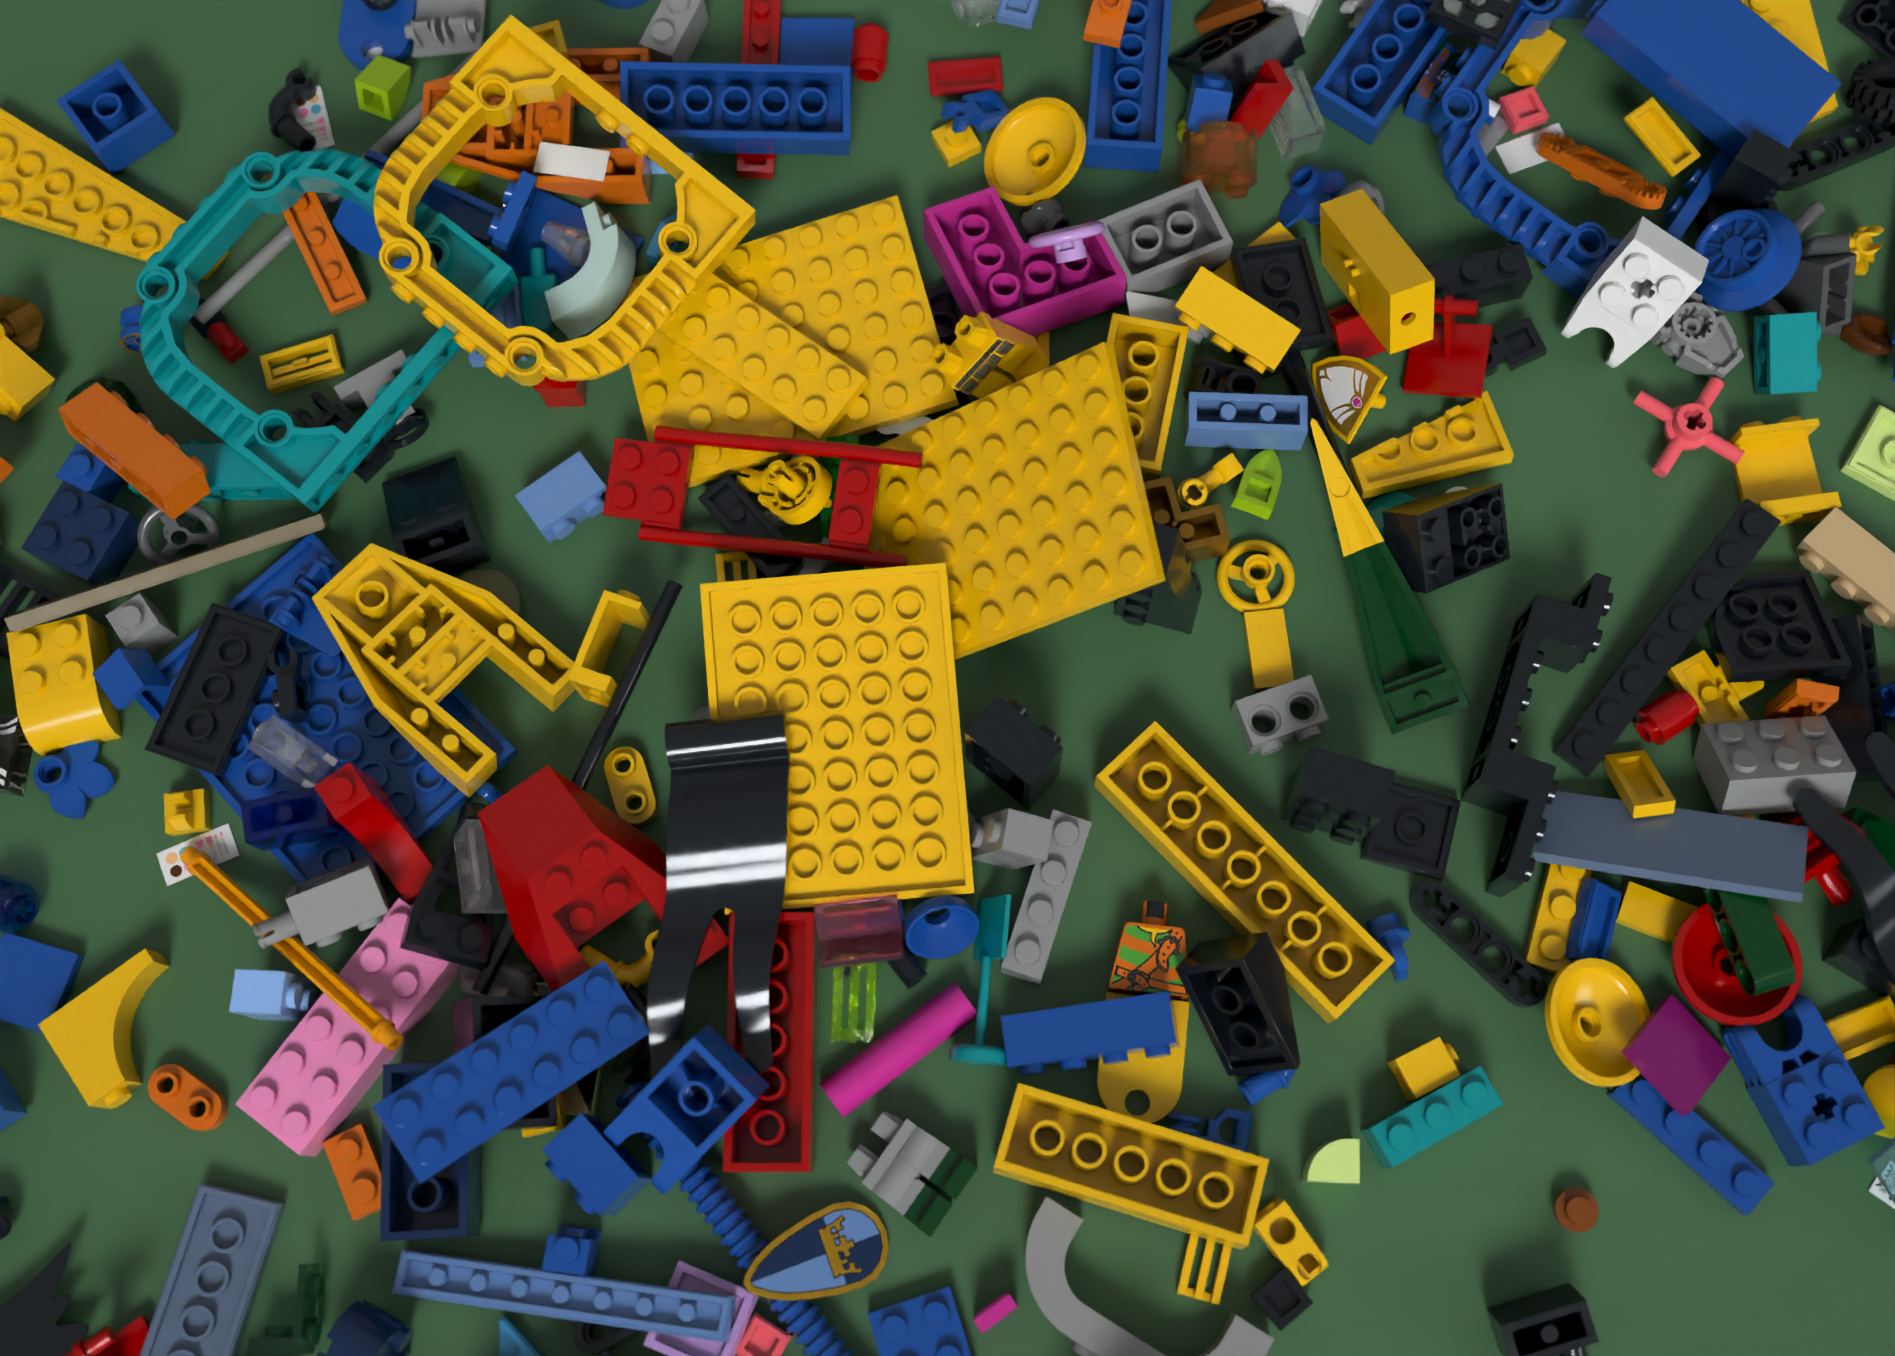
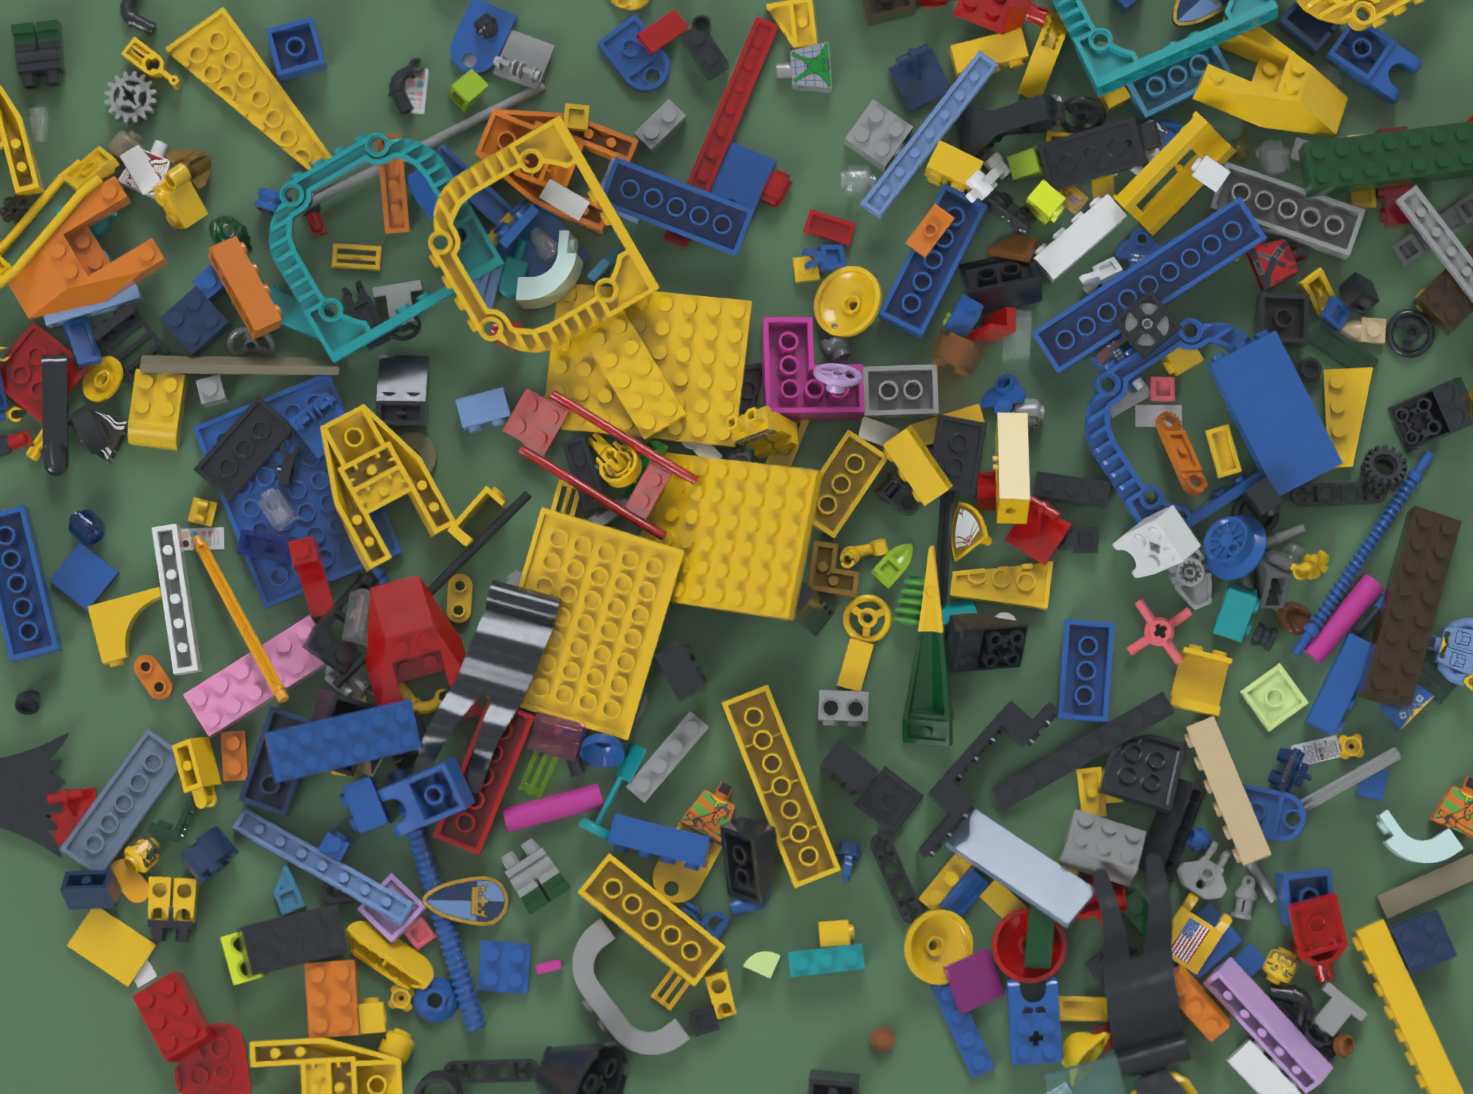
camera: 20 degrees right, 10 degrees up
(78, 781) = (147, 469): blue plate -> none
(128, 675) = (198, 423): blue panel -> none
(181, 959) = (176, 599): none -> white brick
(271, 995) = (221, 642): light blue brick -> none
(301, 1218) = (198, 770): none -> yellow brick
(328, 906) = (271, 606): light grey brick -> none
(1010, 839) = (659, 718): light grey brick -> none
(1245, 421) = (899, 524): medium blue brick -> none
(1311, 522) = (912, 602): none -> bright green piece
(1614, 517) = (1085, 671): none -> blue brick
(1639, 784) = (1025, 827): yellow tile -> none
(1666, 716) = (1061, 795): red brick -> none
(1802, 699) = (1136, 818): orange plate -> none
(1841, 376) = (1264, 636): none -> black wheel

